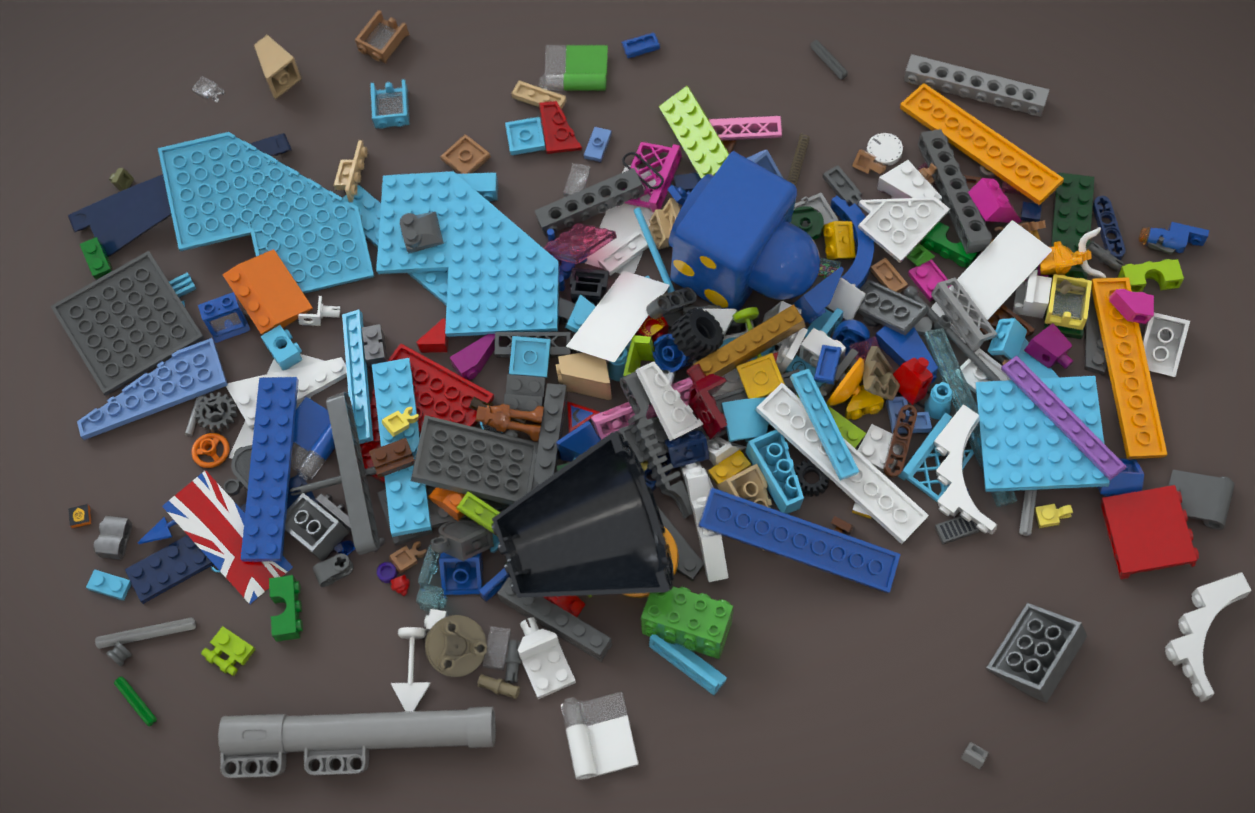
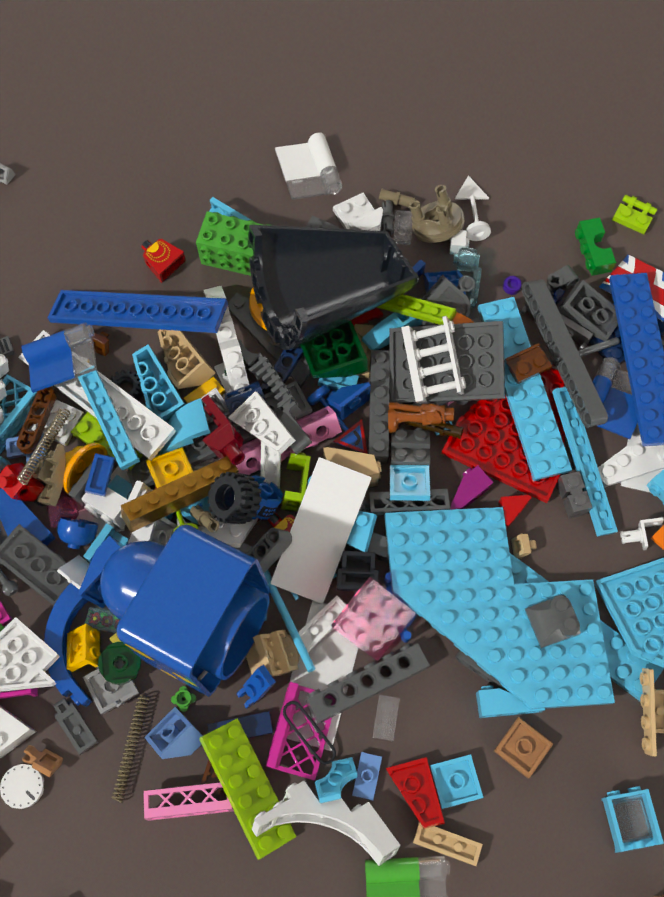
camera: 170 degrees right, 5 degrees up
(344, 737) = (515, 145): light grey piece -> none
(399, 422) = (531, 396): light yellow plate -> none
(400, 585) = (498, 273): red plate -> none
(405, 558) = (497, 292): medium nougat plate -> none
(432, 306) = (522, 545): none -> tan tile
(506, 450) = (415, 354): none -> white fence
(628, 129) = (331, 785): none -> medium azure tile
(630, 116) = (359, 824): none -> white arch
(727, 327) = (204, 518): none -> dark tan pin
(776, 623) = (162, 258): none -> red torso
(878, 495) = (60, 356): none -> blue door
(885, 406) = (23, 472): none -> dark tan piece
(888, 276) = (32, 609): medium nougat plate -> none

